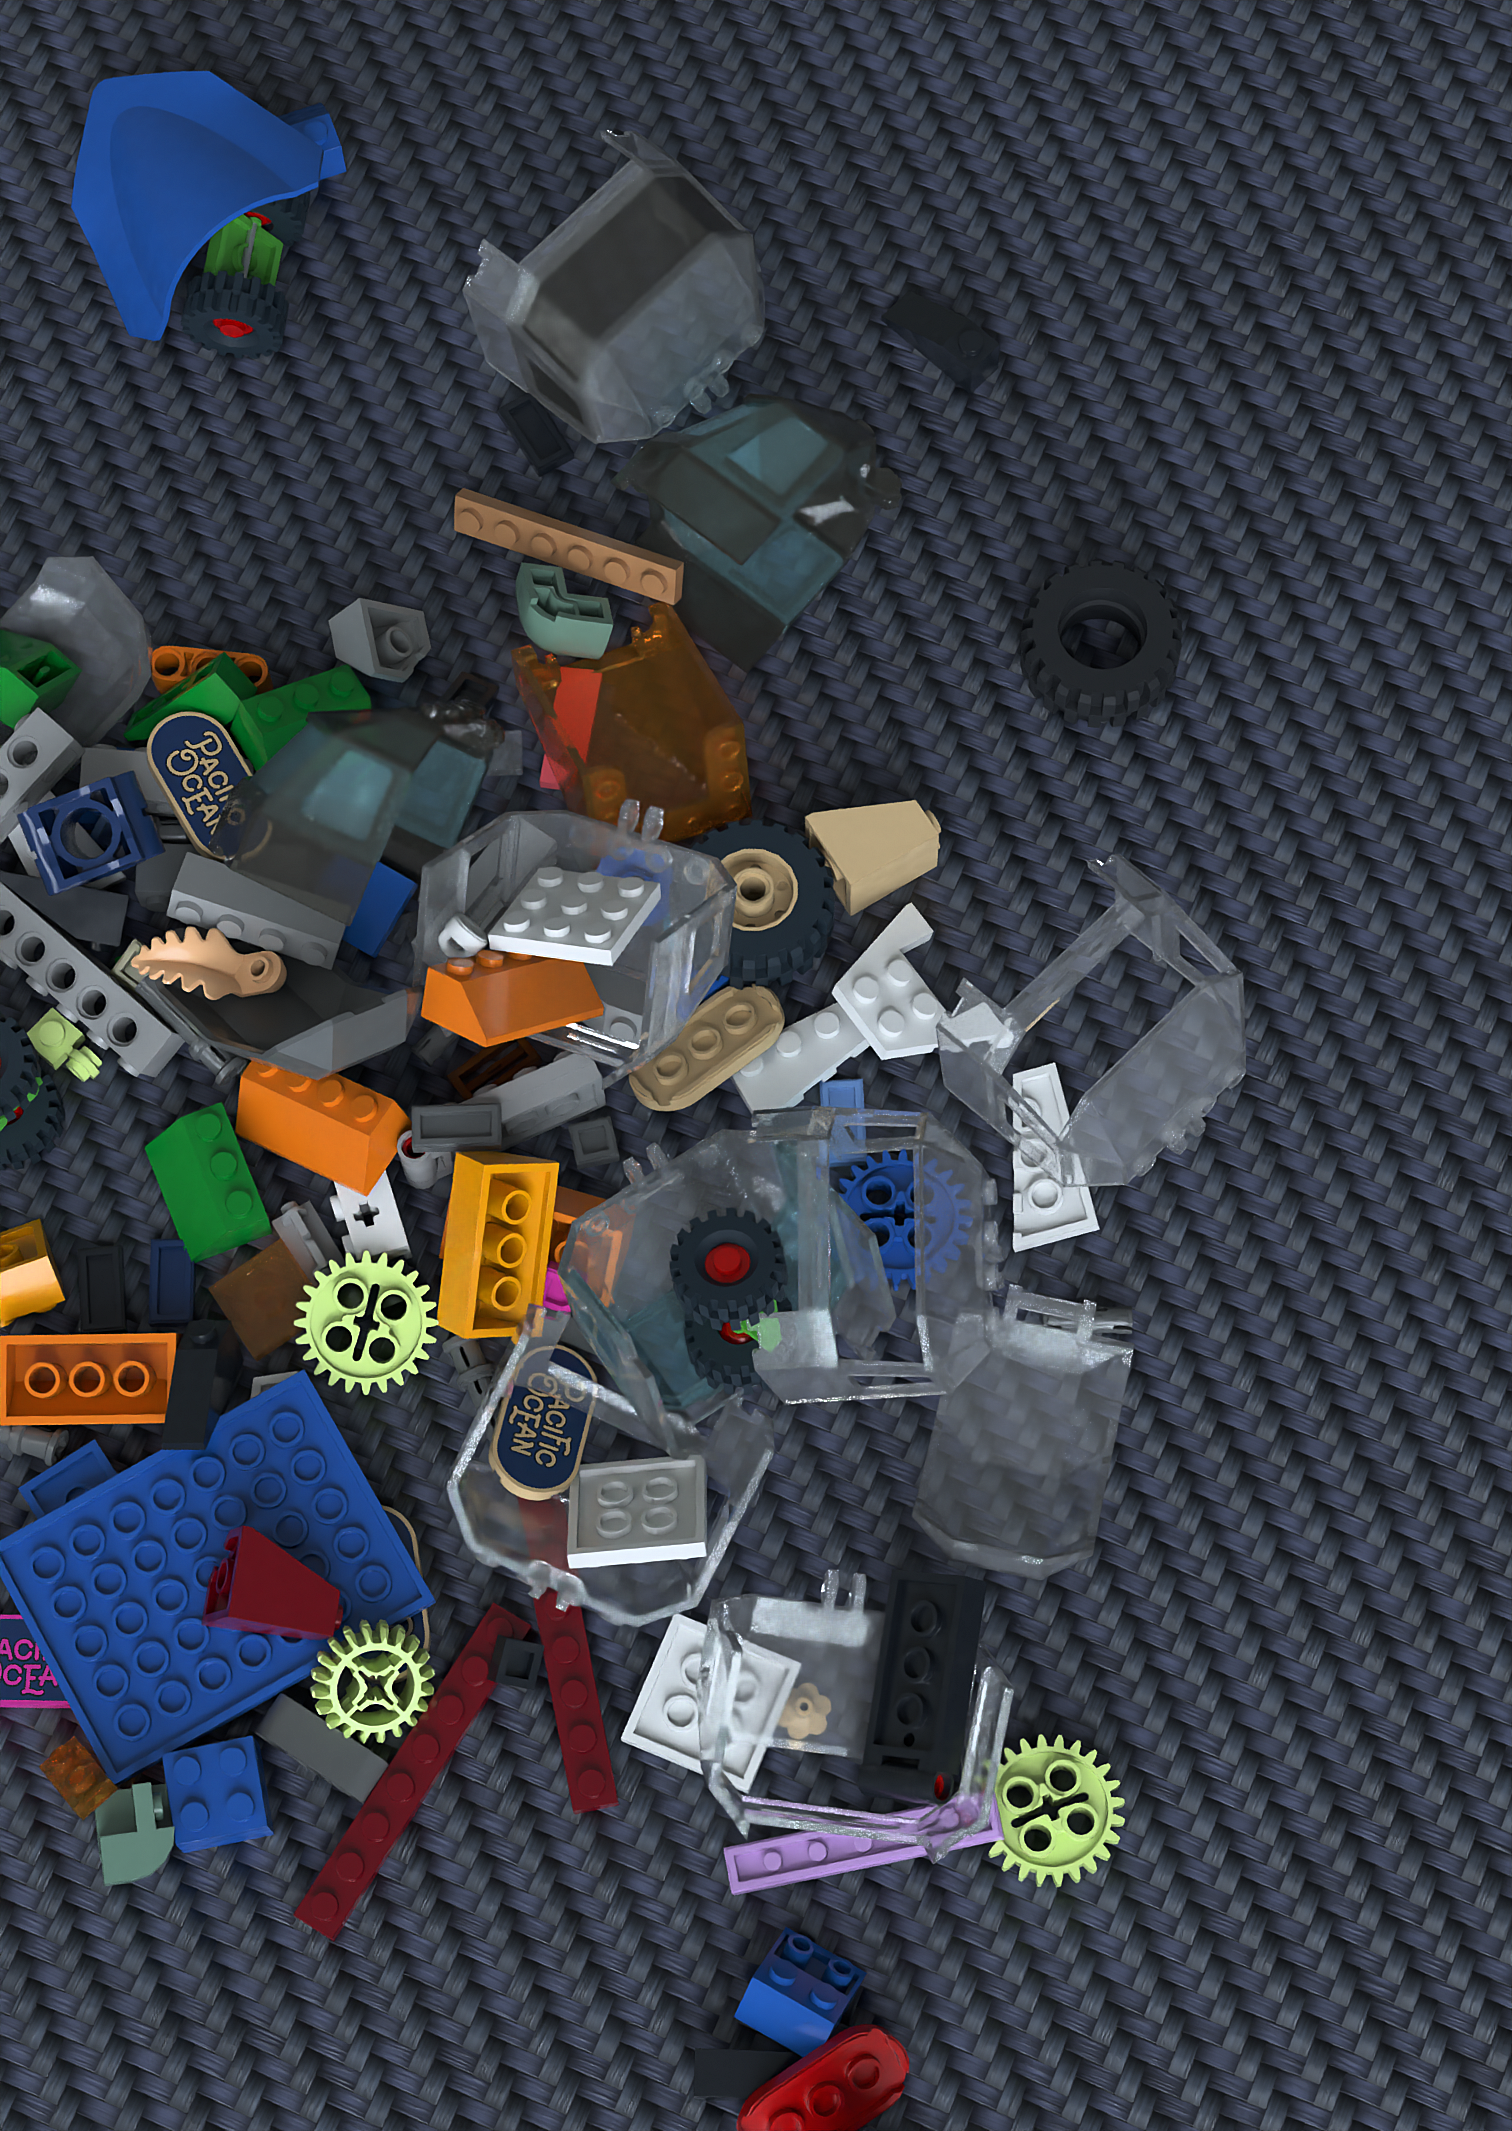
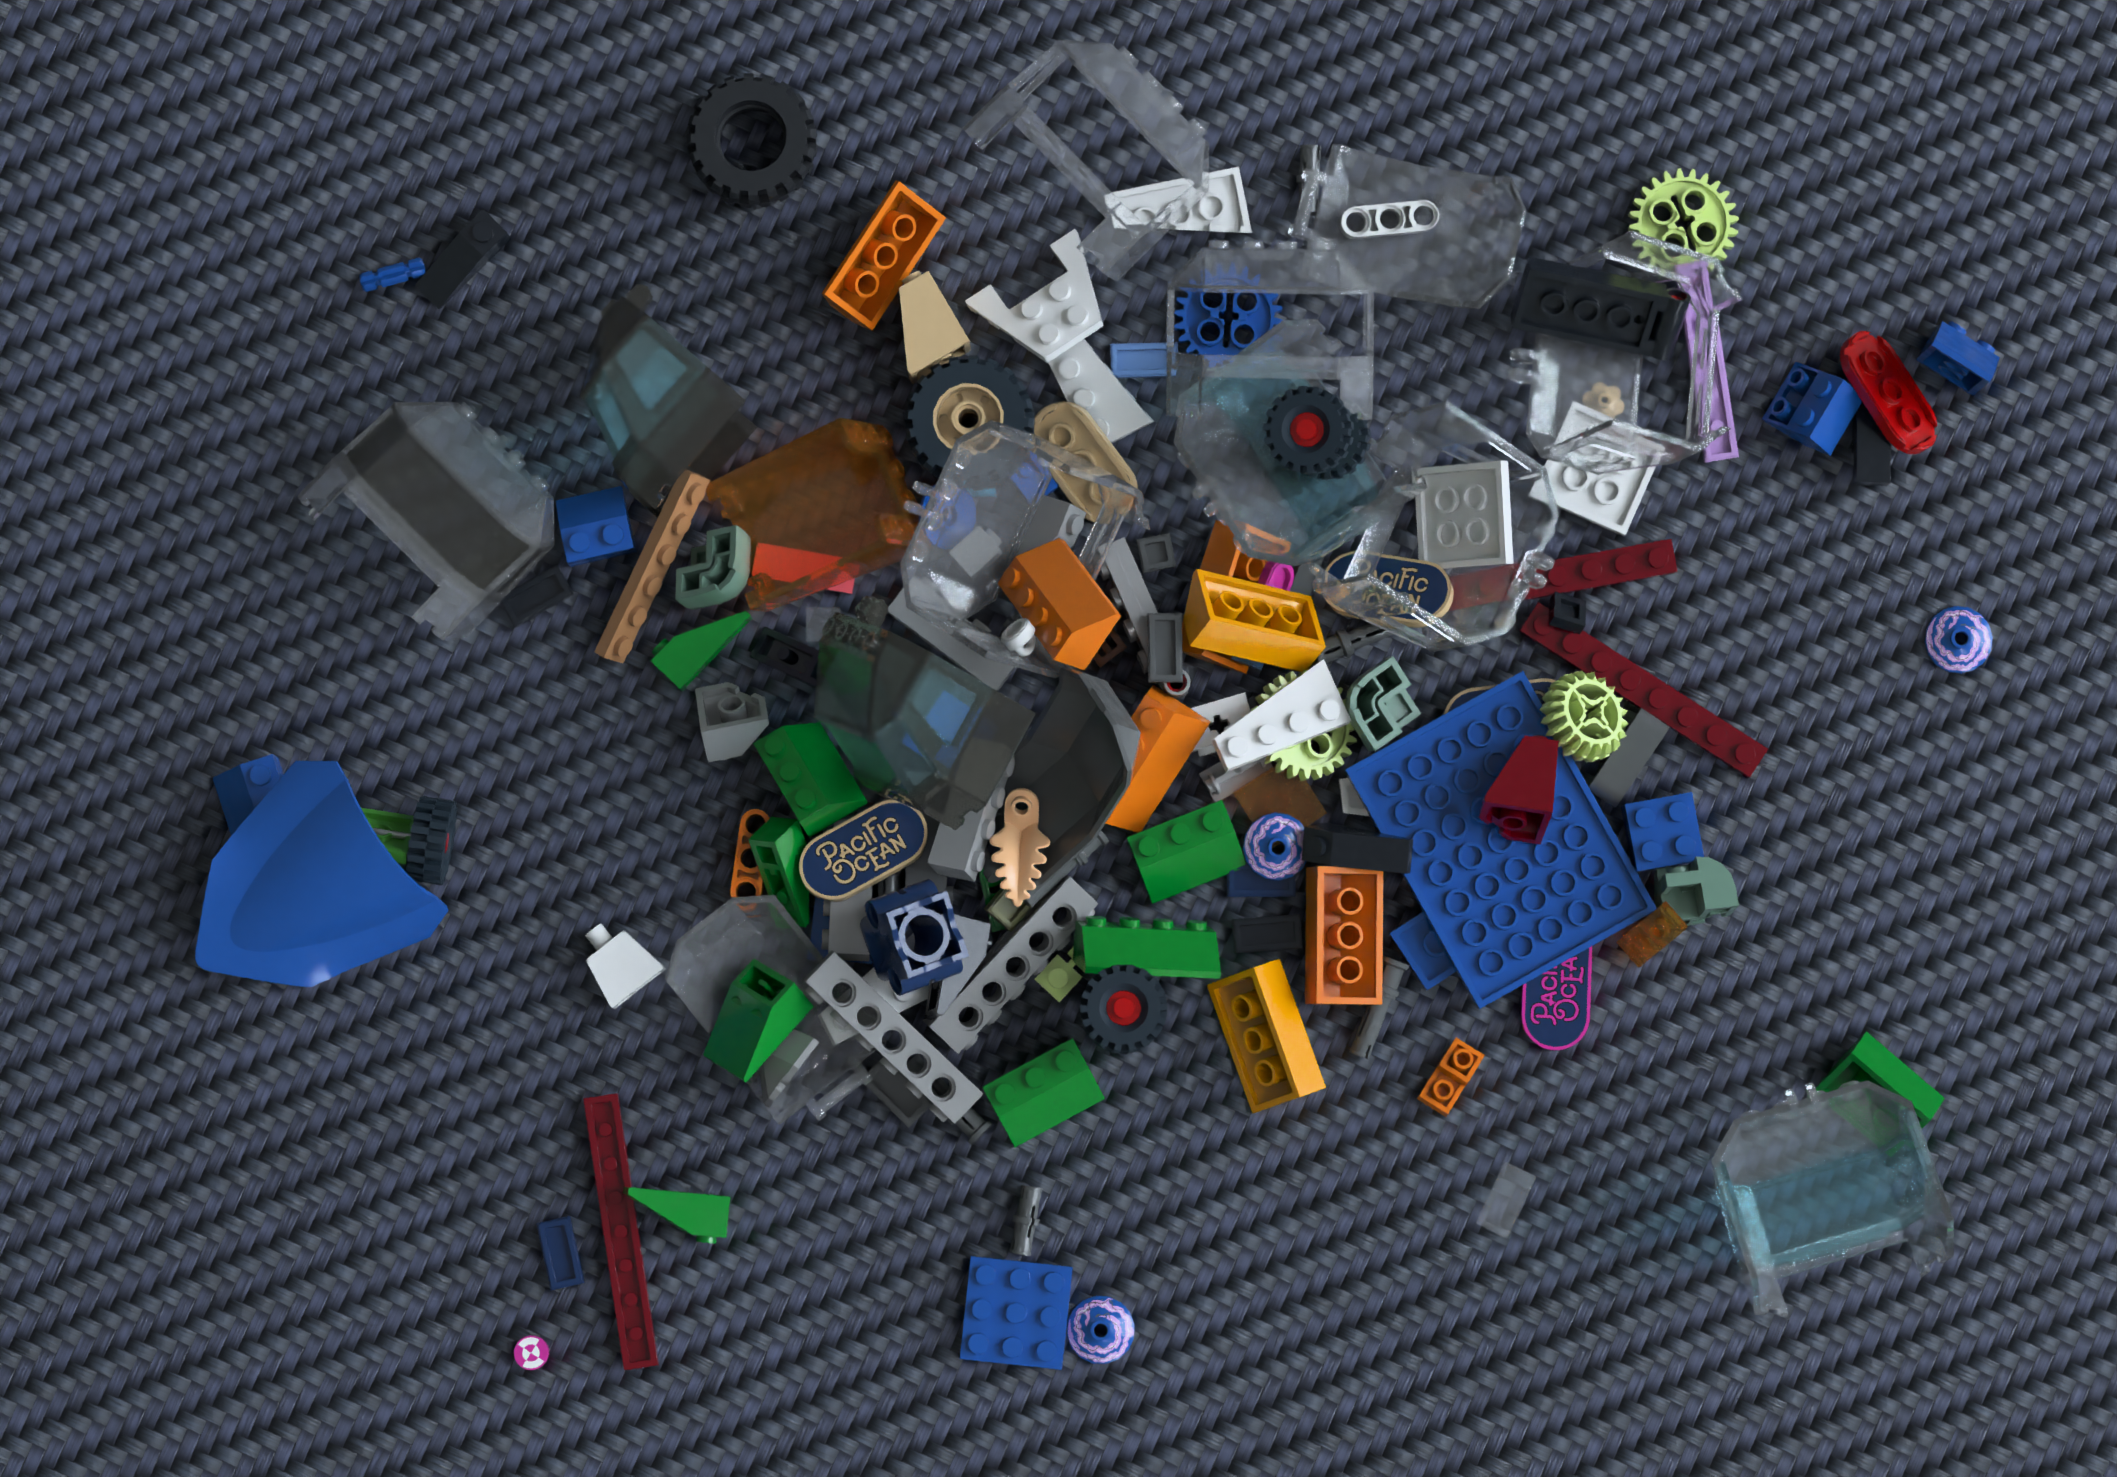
camera: 90 degrees left, 15 degrees up
(76, 1127) = (1155, 947): none -> green slope
(86, 528) = (620, 964): none -> white torso
(231, 1296) = (1259, 842): none -> dish
(371, 1294) = (1289, 717): none -> white wing
(389, 1414) = (1380, 704): none -> sand green brick
(460, 596) = (694, 650): none -> green slope
(575, 916) = (998, 552): white plate -> none
(604, 506) = (595, 526): none -> blue slope
(920, 264) = (392, 274): none -> blue axle
(962, 789) = (883, 256): none -> orange slope
(1035, 1393) = (1403, 211): none -> white beam

